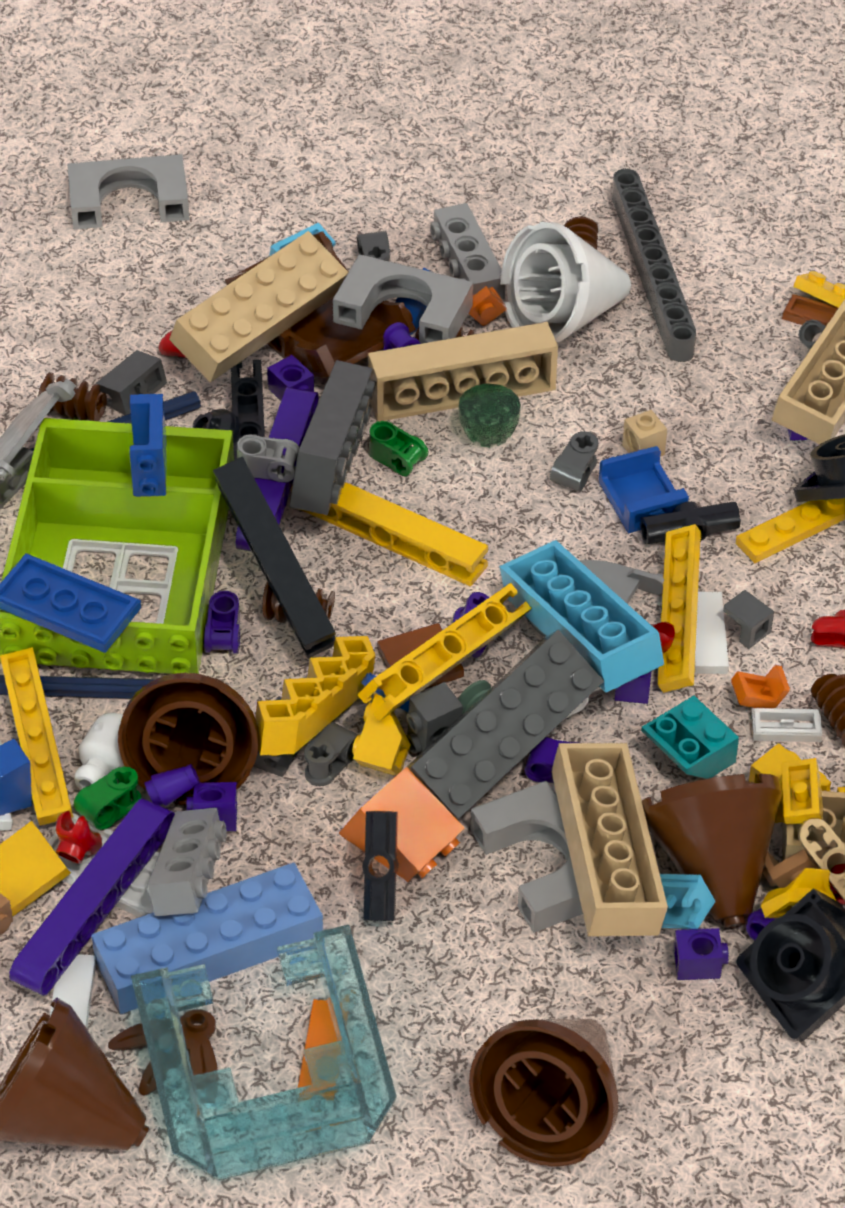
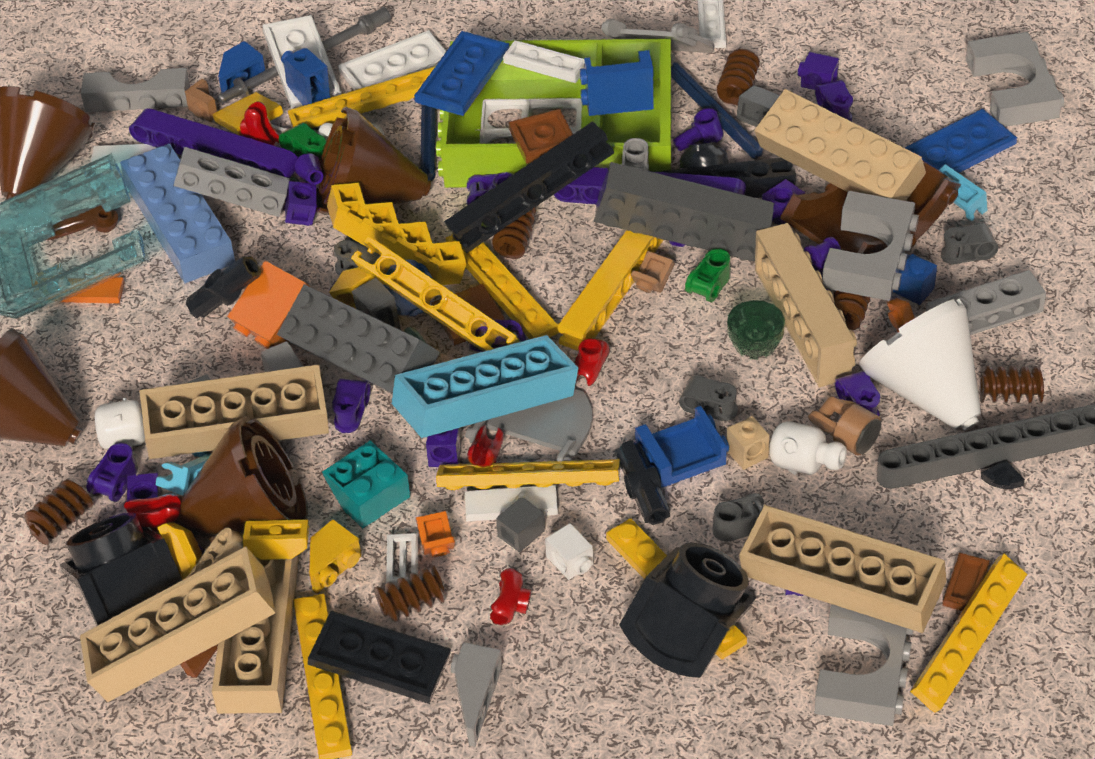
camera: 90 degrees right, 0 degrees up
(63, 524) = (544, 61): none -> white tile
(79, 333) = (818, 70): none -> dark purple brick
(128, 328) = (835, 98): none -> dark purple piece
(199, 533) = (539, 133): none -> dark orange tile
(212, 244) = (964, 142): none -> blue tile
(383, 487) = (653, 273): none -> medium nougat bracket
(394, 618) = (508, 292): none -> yellow plate
(506, 547) = (591, 358): none -> red piece
(581, 355) = (858, 389): none -> dark purple piece
(582, 974) = (119, 423): none -> white piece
(631, 357) = (856, 427): none -> medium nougat piece
(657, 392) = (804, 449): none -> white piece
(658, 988) = (112, 471): none -> dark purple piece
(687, 275) = (1003, 475): none -> black tile
(719, 1041) = (55, 509): none -> reddish brown piece
(740, 454) = (736, 517): none -> dark grey piece
(741, 926) = (155, 511): none -> red piece
(784, 582) = (569, 551): none -> white brick

